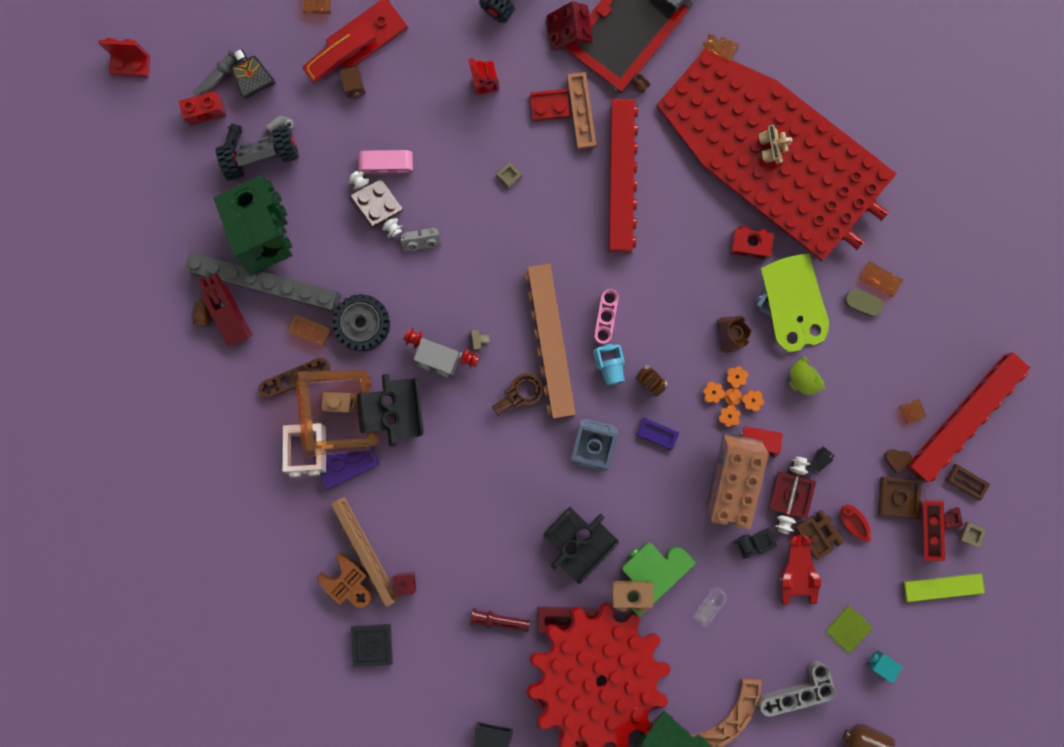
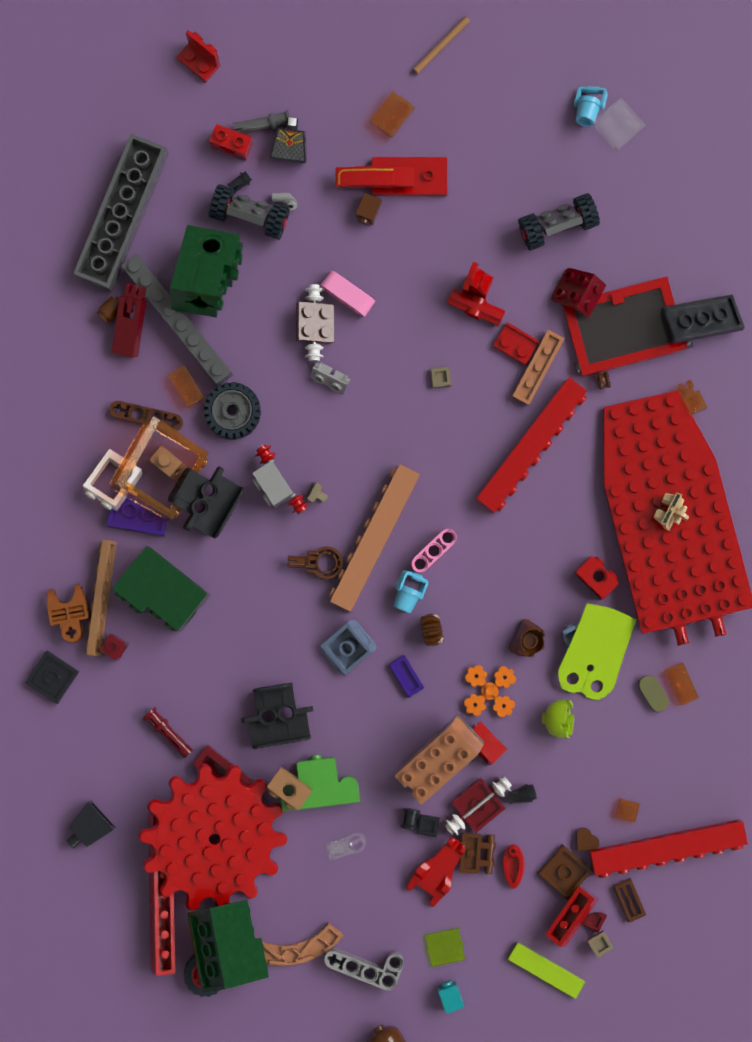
camera: 25 degrees right, 0 degrees up
(153, 228) = (121, 212): none -> dark grey brick
(408, 509) = (160, 586): none -> dark green piece
(496, 98) = (475, 307): none -> red piece

